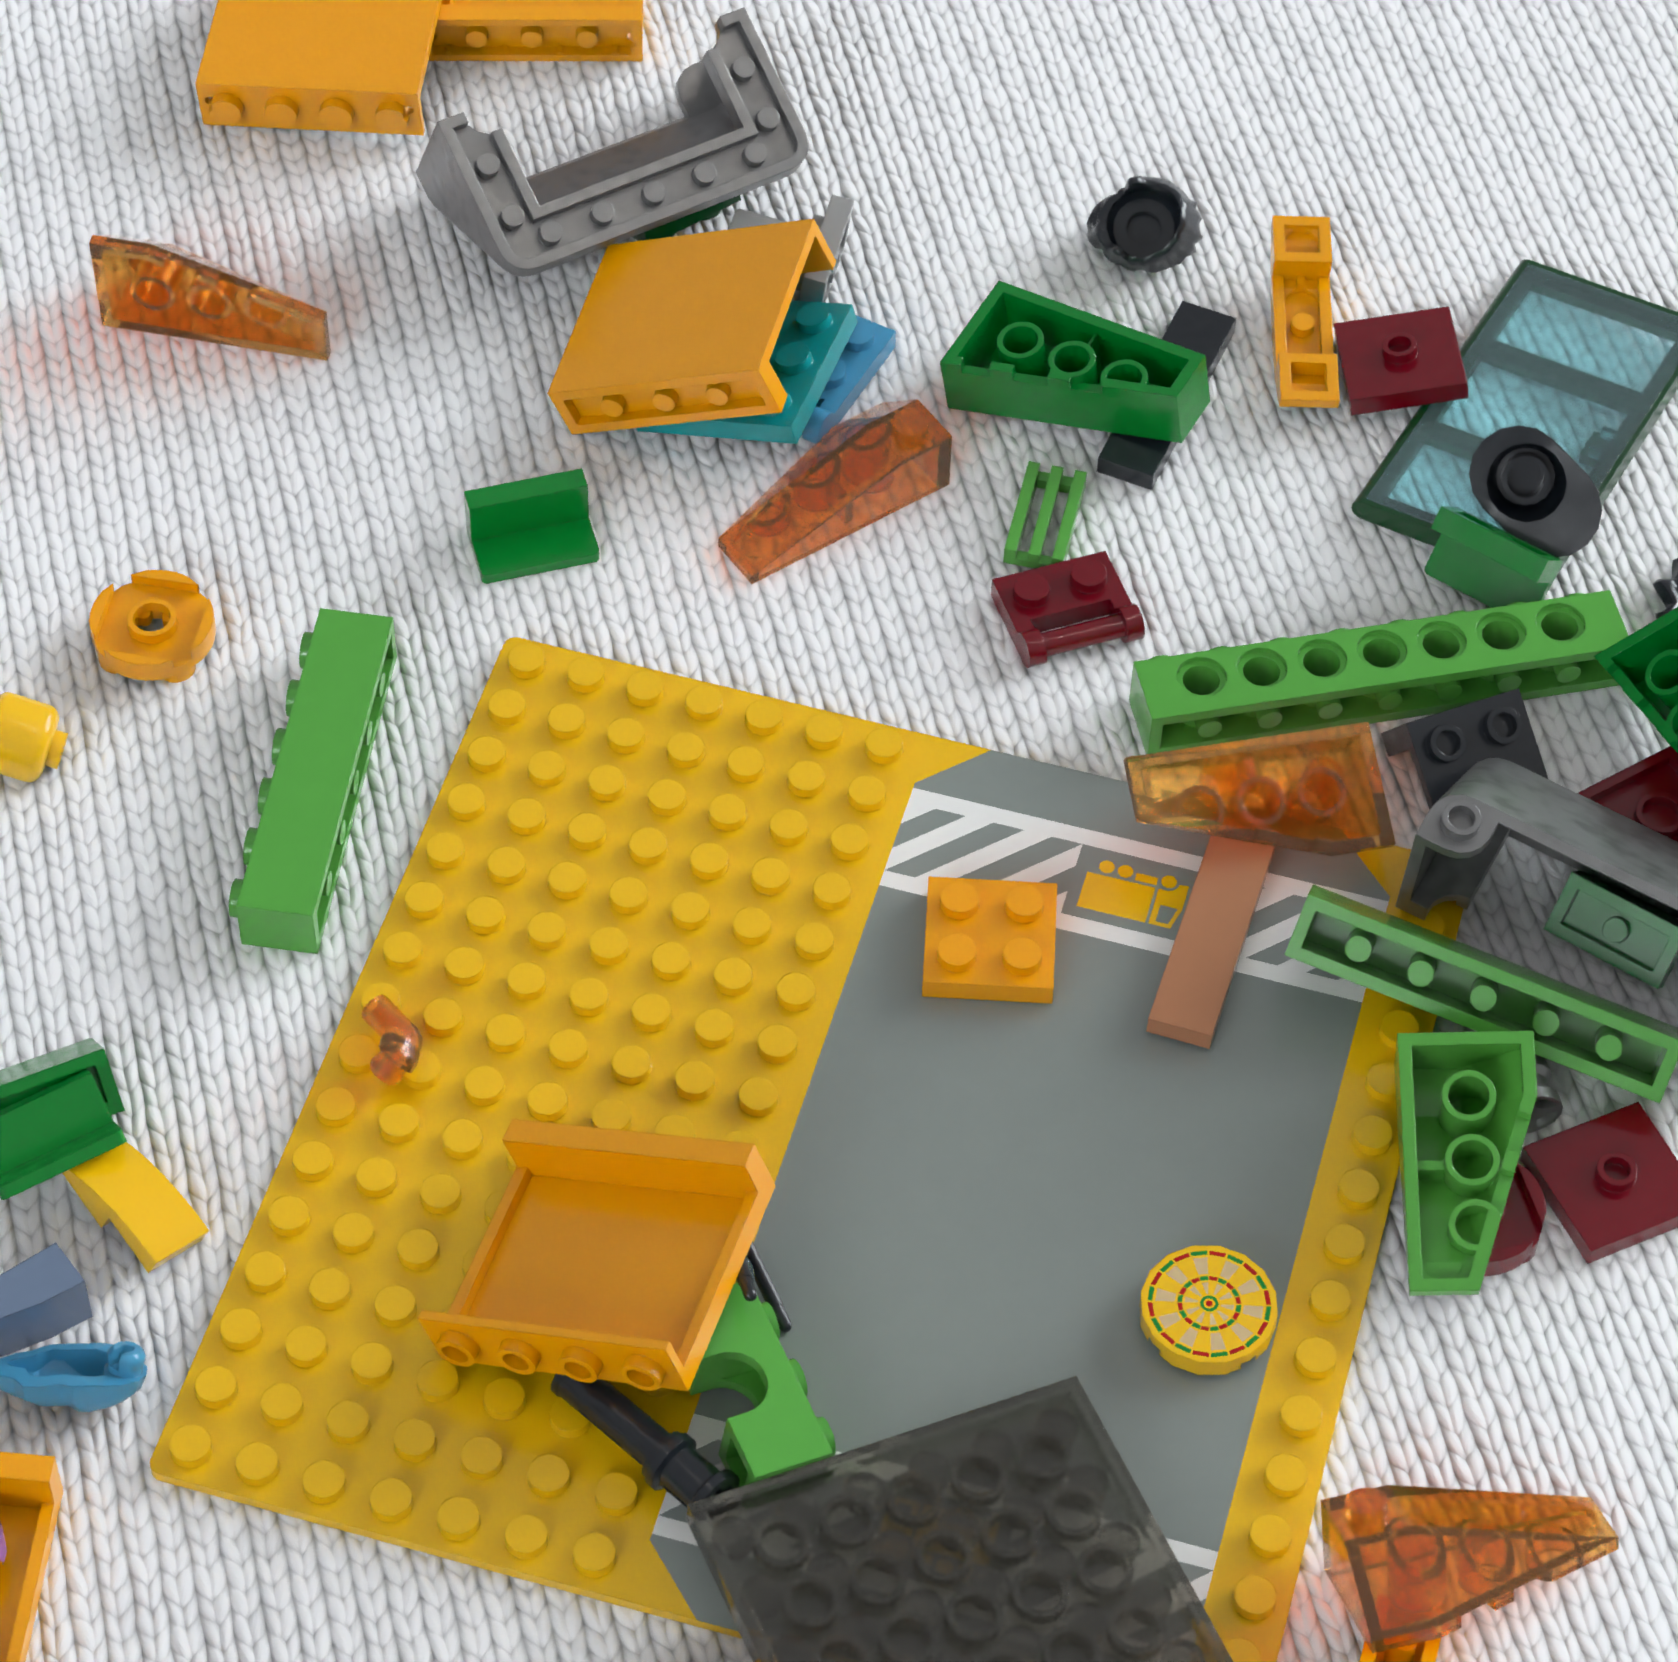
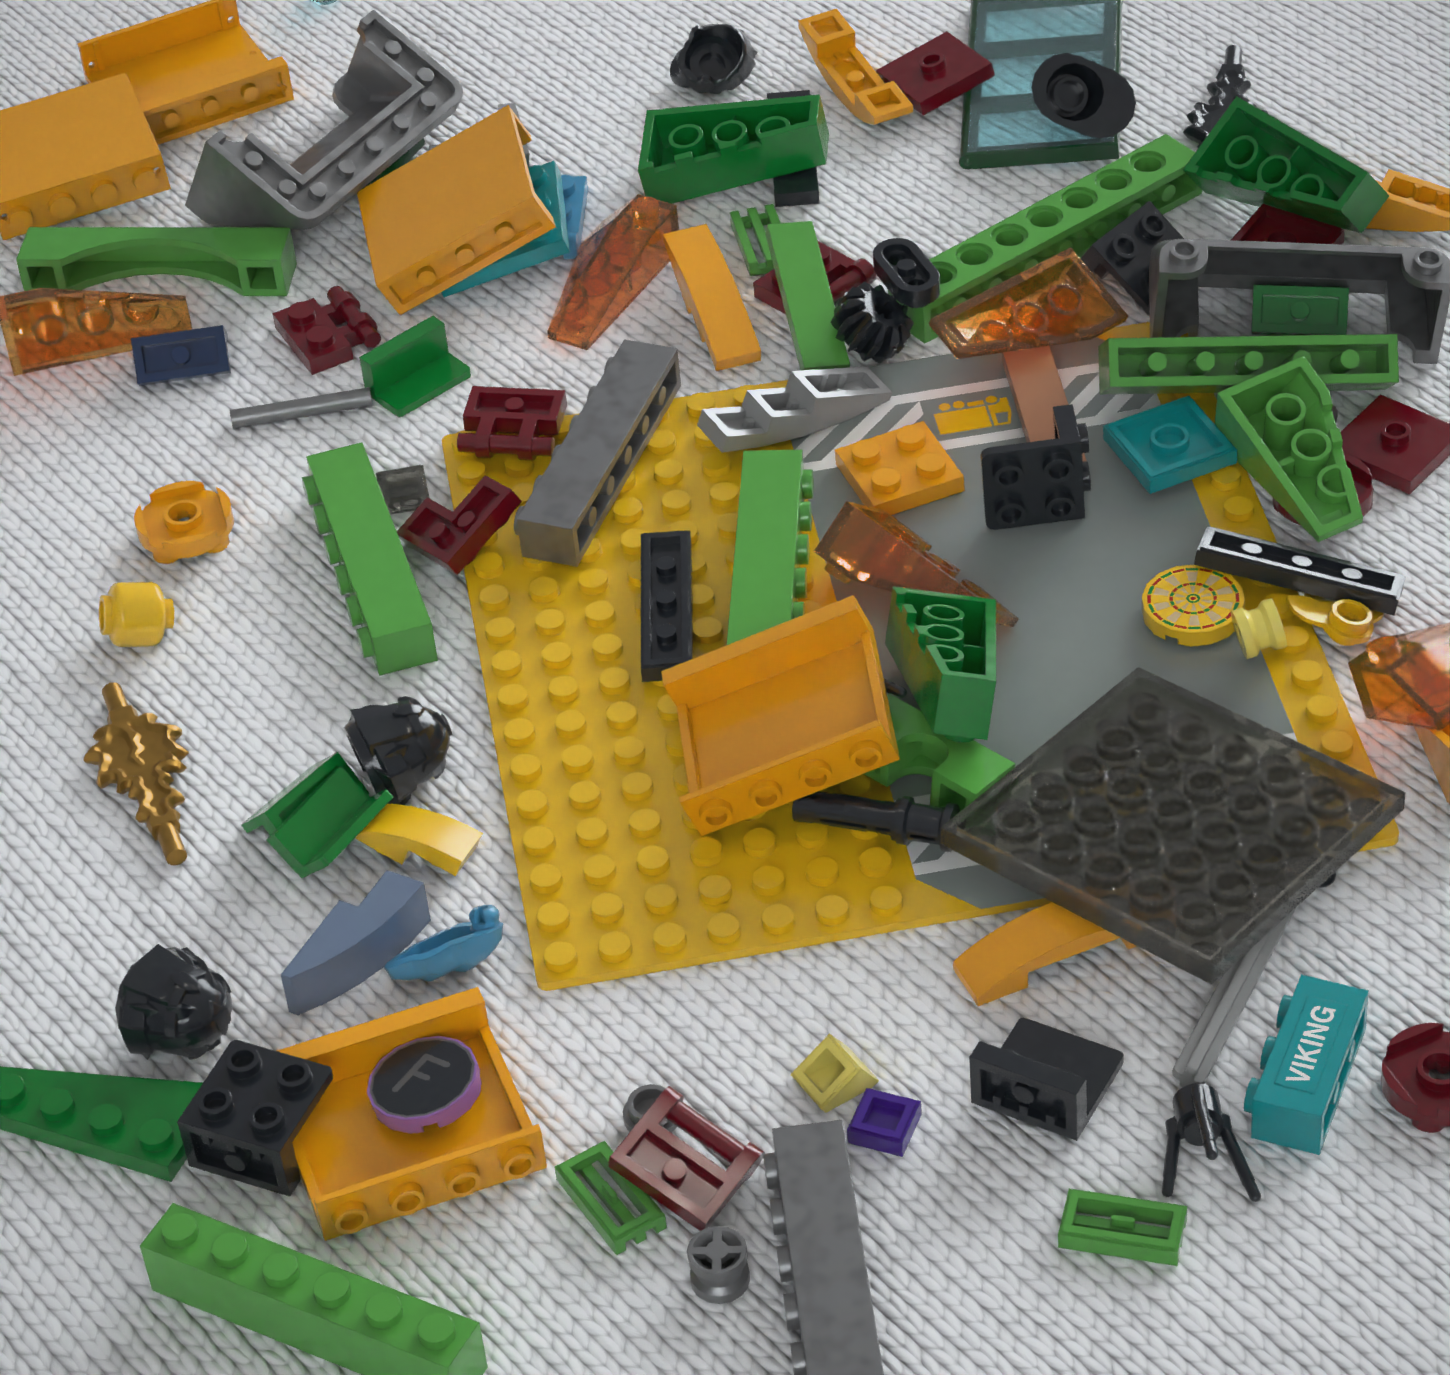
camera: 20 degrees left, 10 degrees down
(174, 1070) = (399, 745): none -> black helmet
(251, 194) = (241, 258): none -> bright green arch
(287, 387) = (181, 355): none -> dark blue panel
(378, 521) = (300, 407): none -> flat silver bar
(399, 1041) = (538, 669): clear orange arm -> none
(420, 693) = (403, 488): none -> clear smoke tile
(427, 794) = (458, 535): none -> dark red plate
(454, 422) = (314, 331): none -> dark red plate
(590, 647) = (512, 411): none -> dark red plate
(598, 1012) = (665, 602): none -> black tile
(650, 756) = (598, 453): none -> flat silver brick
(748, 1000) = (770, 542): none -> bright green brick
(849, 1263) = (946, 658): none -> green wedge
(891, 1072) = (884, 553): none -> clear orange wedge
(928, 580) = (712, 297): none -> light orange slope
(932, 796) = (806, 405): none -> light grey slope
(1029, 639) = (806, 295): none -> bright green tile
(1083, 711) = (872, 322): none -> black gear
(1124, 1051) = (1038, 478): none -> black bracket
(1153, 670) = (906, 272): none -> black plate
(1253, 1390) = (1259, 628): none -> light yellow wheel
(1326, 1059) = (1169, 444): none -> teal plate
(1364, 1325) = (1299, 569): none -> black tile
(1380, 1394) = (1343, 620): none -> yellow plate
(1488, 561) = (1072, 150): green panel -> none

